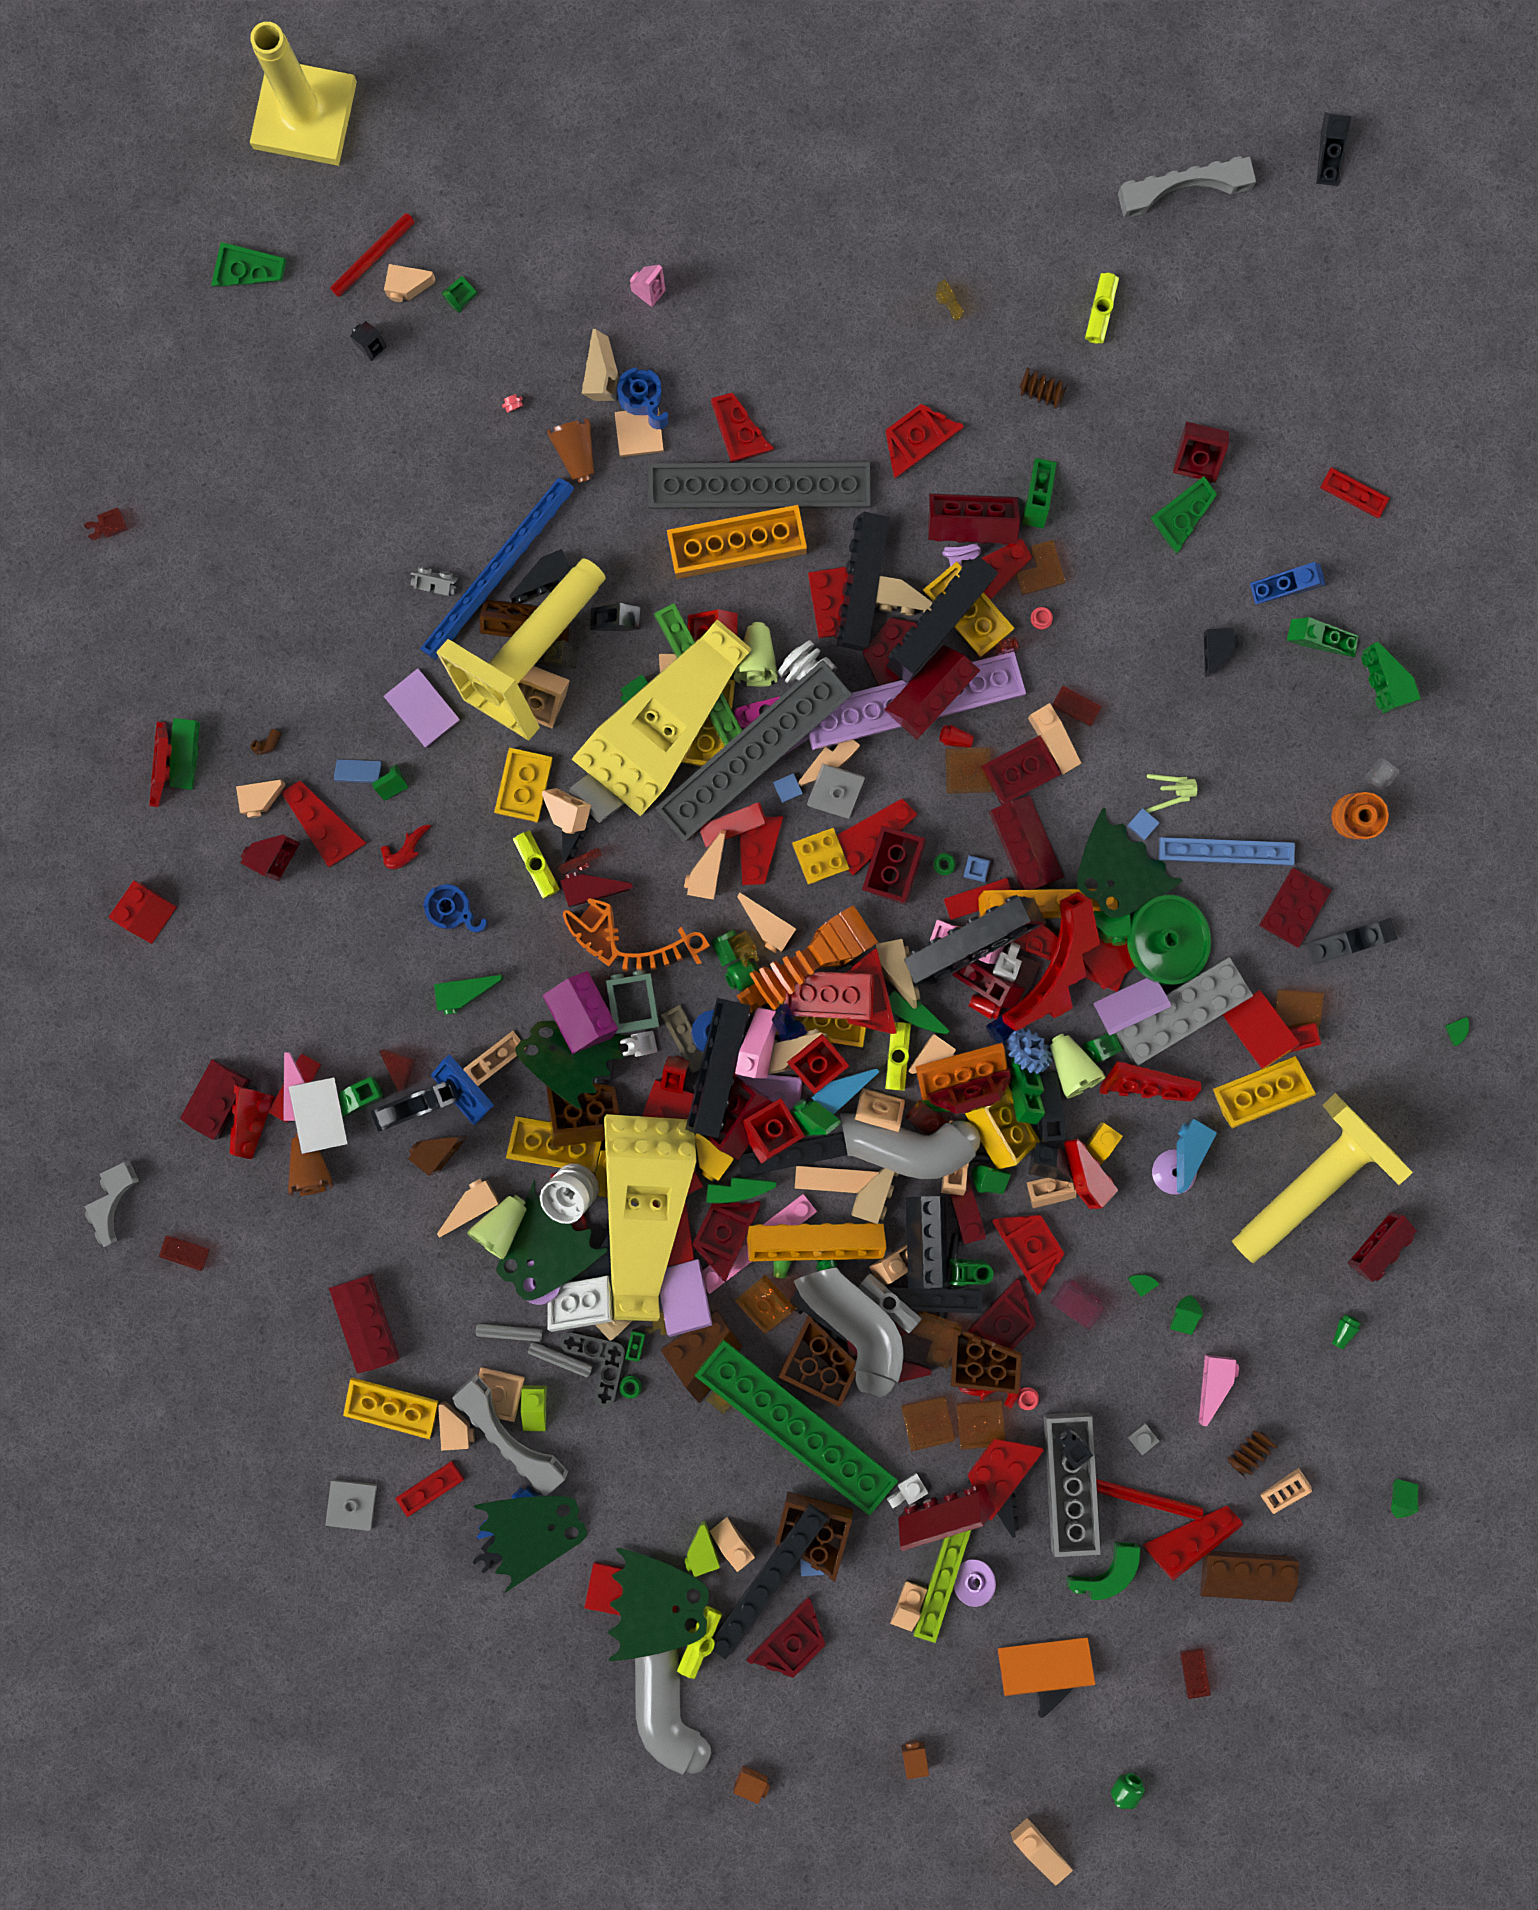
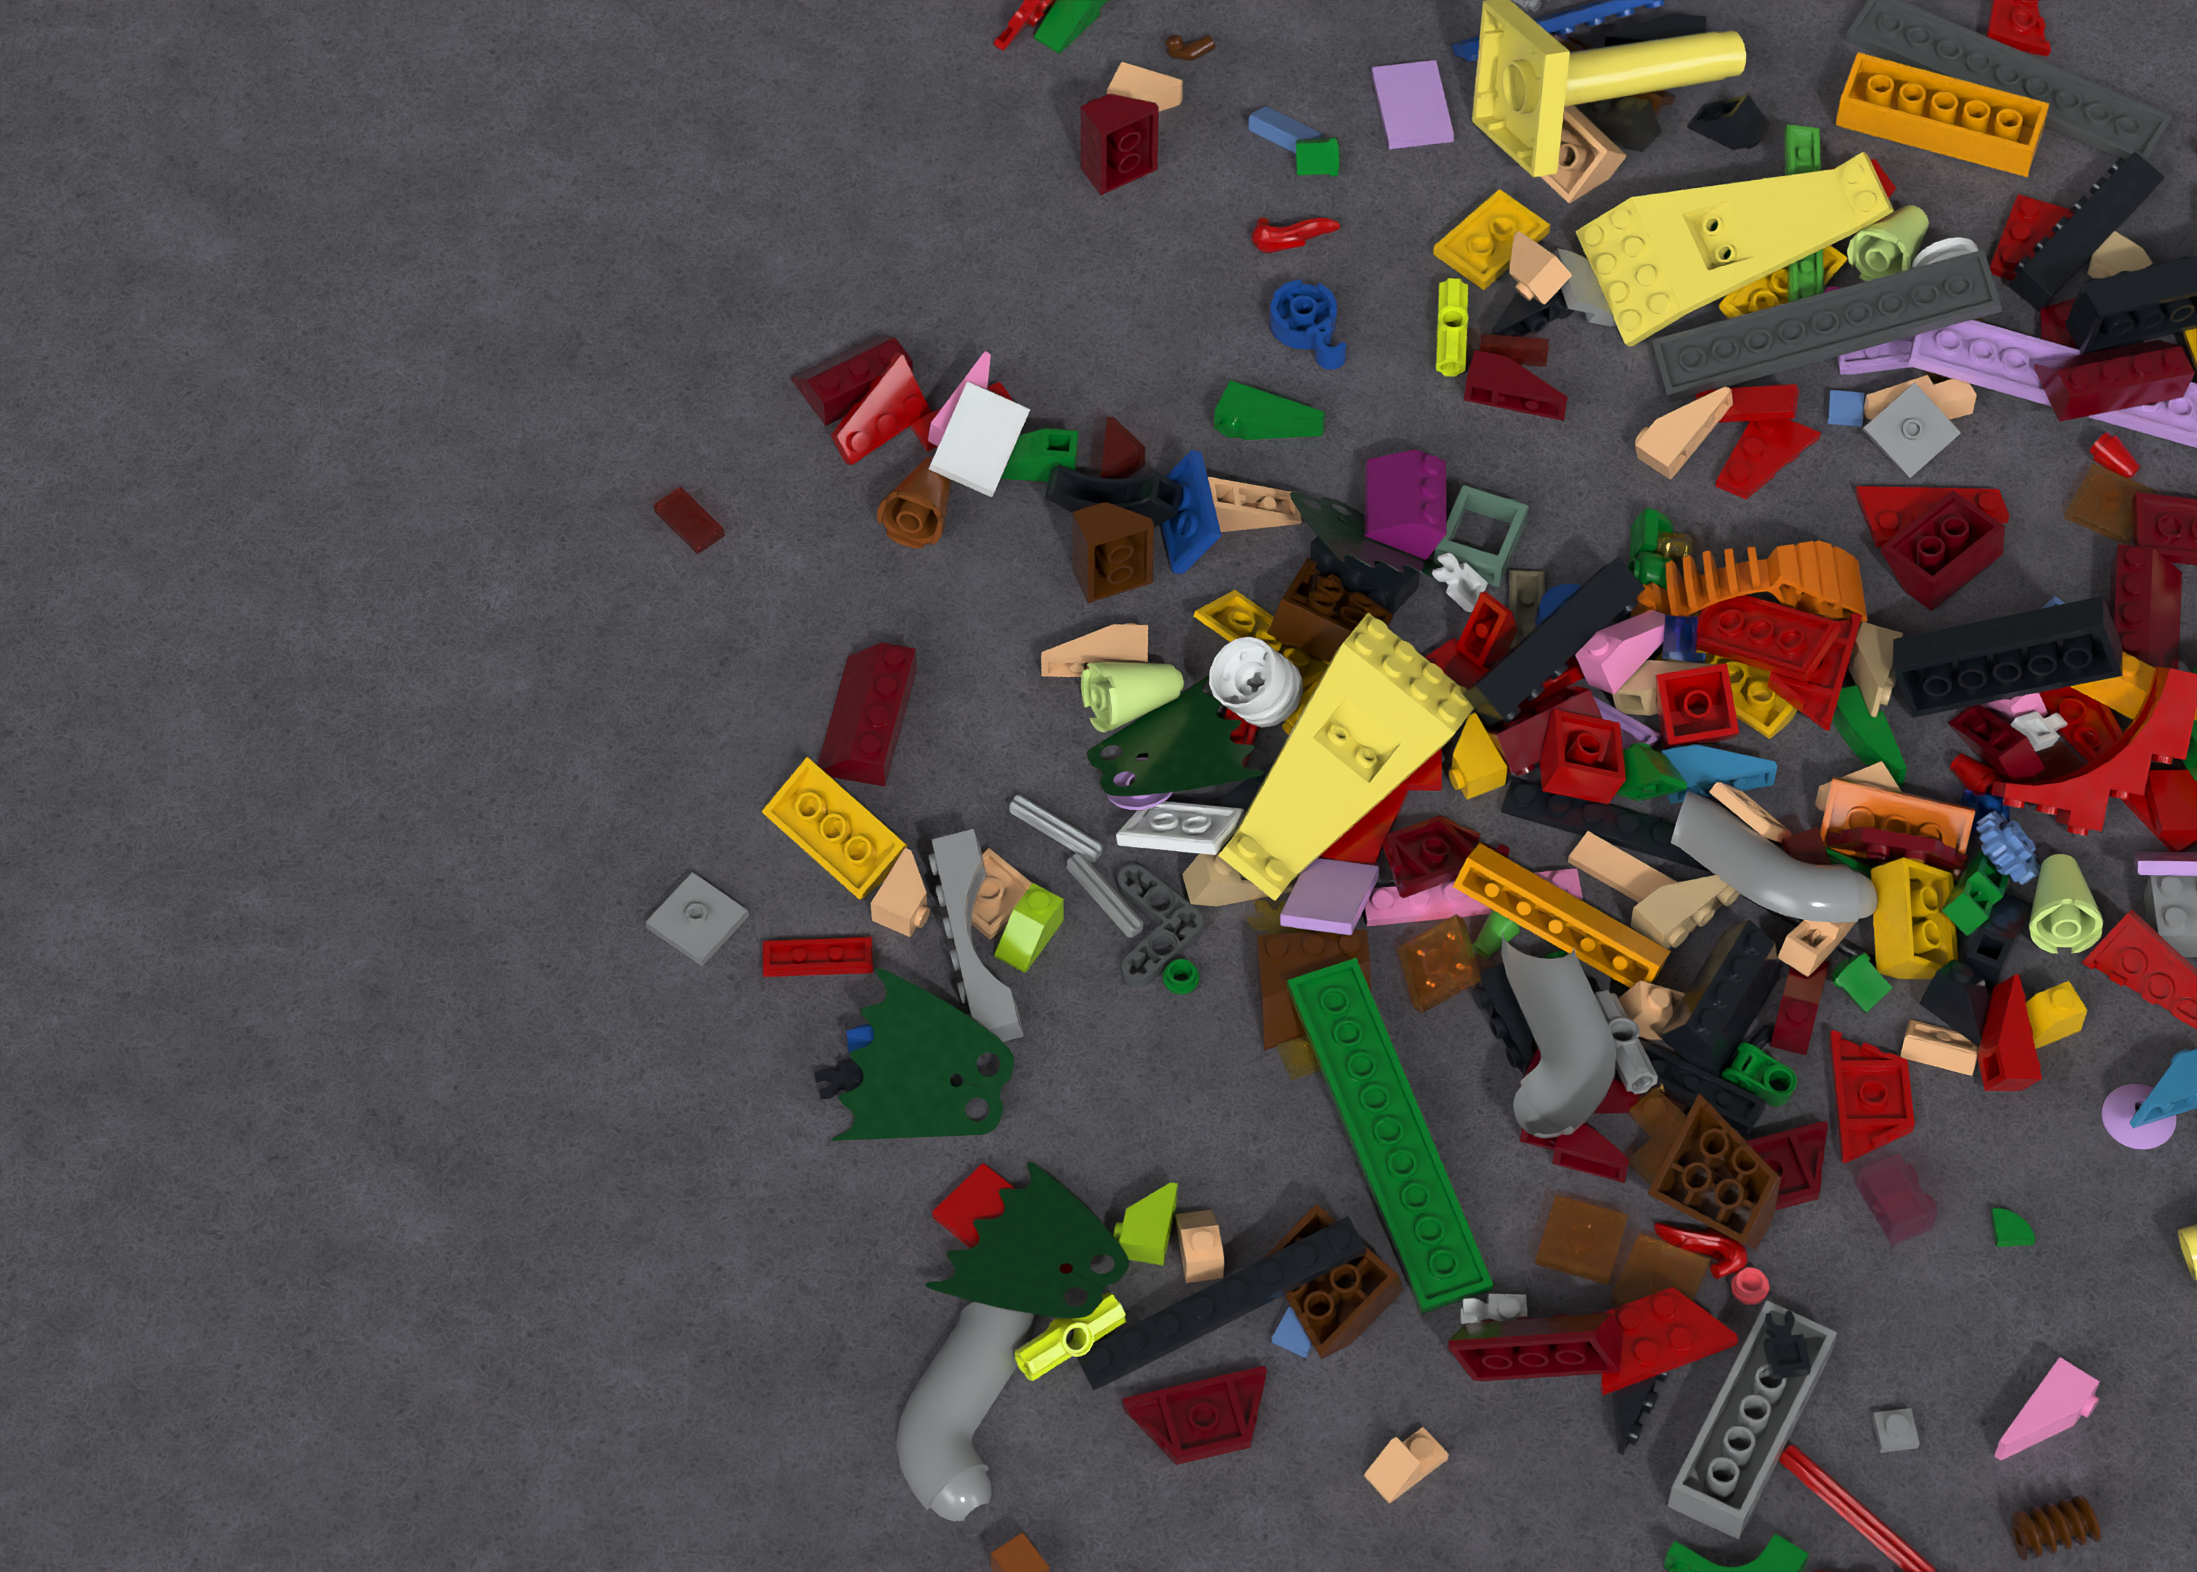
camera: 30 degrees right, 30 degrees down
(101, 1212) = (661, 400): light grey arch -> none
(142, 911) = (907, 137): red slope -> none
(326, 830) = (1200, 165): red wing -> none
(597, 935) = (1483, 436): orange piece -> none
(635, 1345) = (1221, 930): green piece -> none
(739, 1190) = (1491, 816): green slope -> none
(769, 926) = (1722, 526): light nougat slope -> none
(818, 1364) = (1466, 1074): reddish brown wedge -> none
(820, 856) = (1844, 495): yellow hinge -> none
(897, 1071) = (1804, 785): neon yellow piece -> none
(941, 1586) = (1485, 1448): lime plate -> none
(951, 861) = (2016, 582): green plate -> none
(965, 1583) = (1525, 1477): lavender dish -> none
(1102, 1047) = (2118, 899): green bracket -> none
(1186, 1315) = (2052, 1299): green tile -> none

